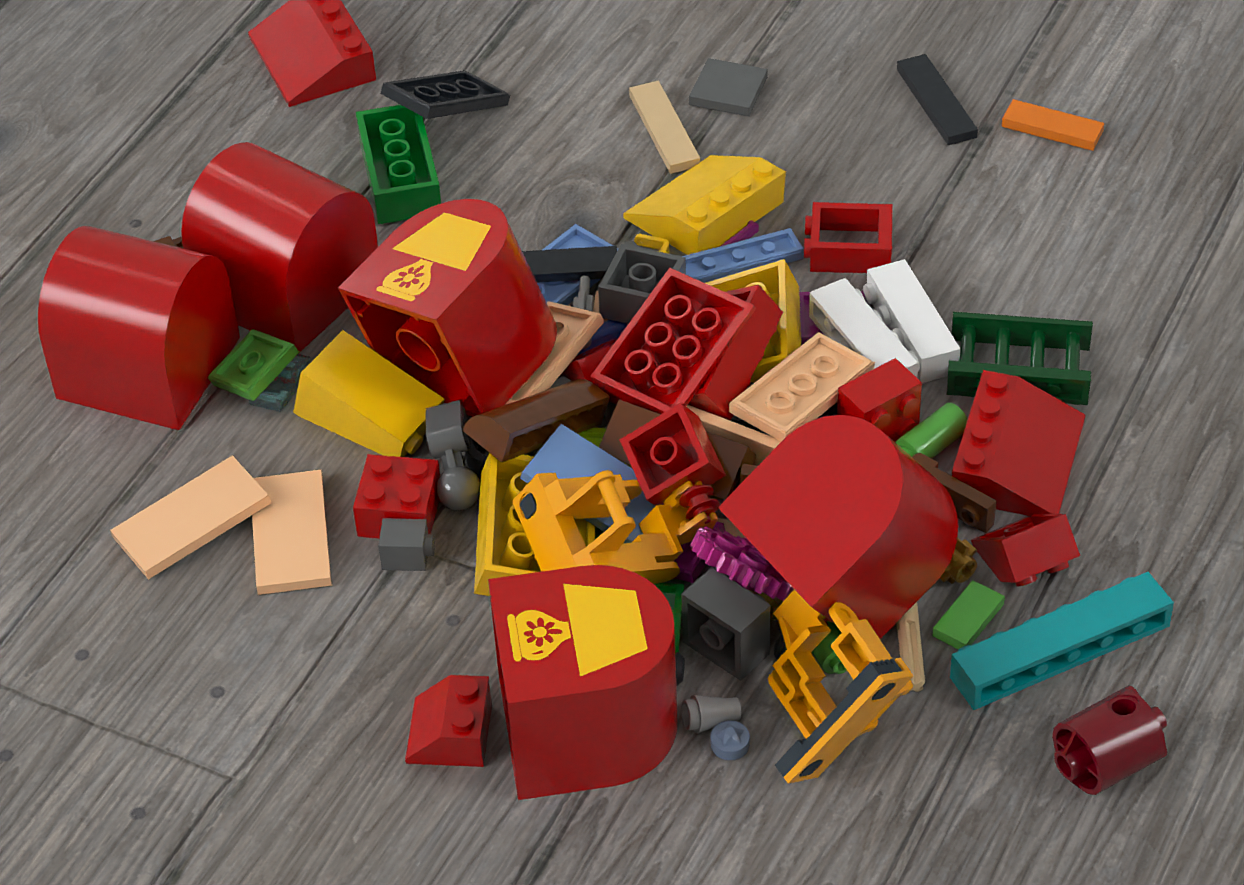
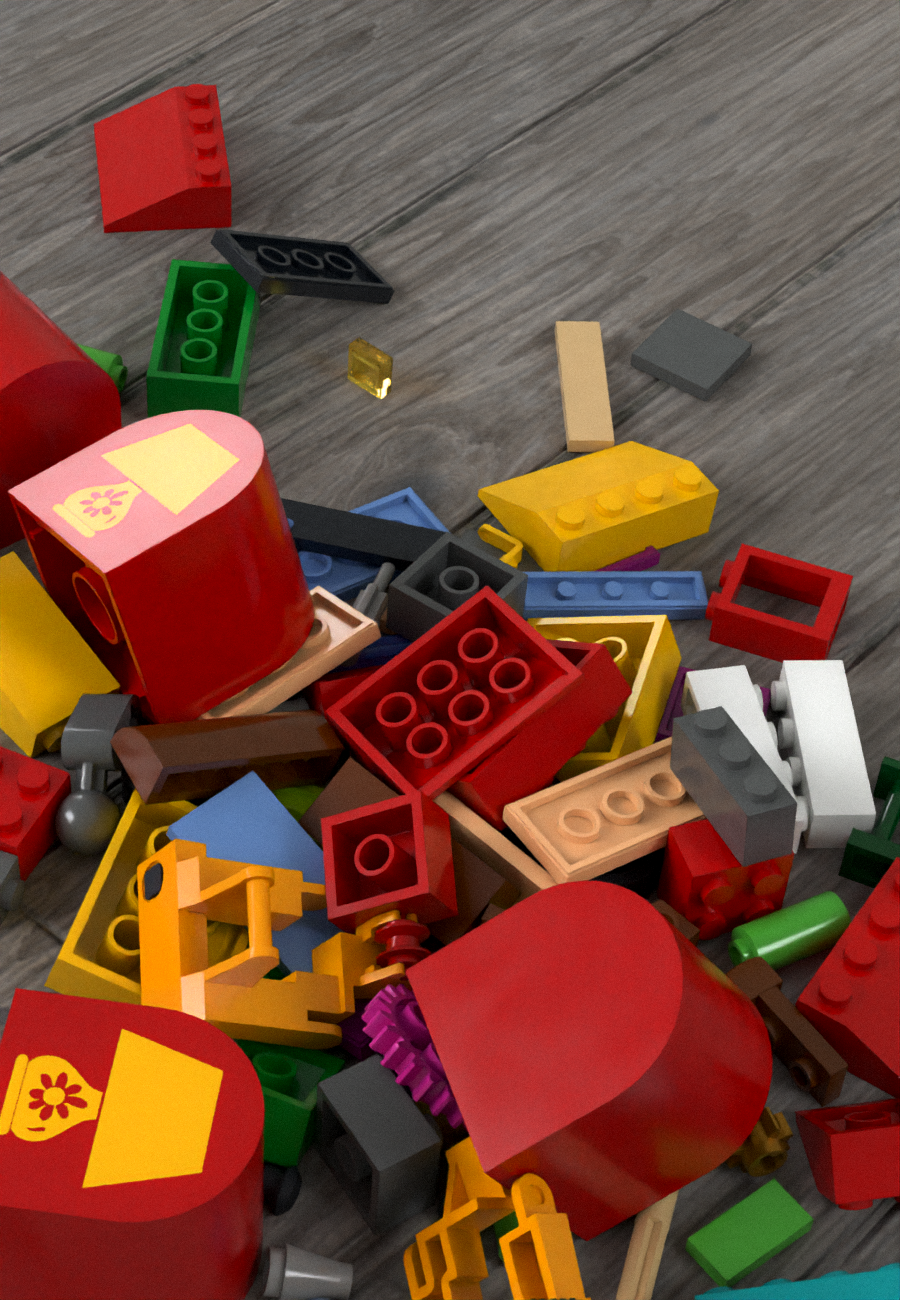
camera: 10 degrees right, 0 degrees up
(516, 151) = (370, 368): none -> clear yellow tile
(870, 350) = (733, 786): none -> dark grey brick

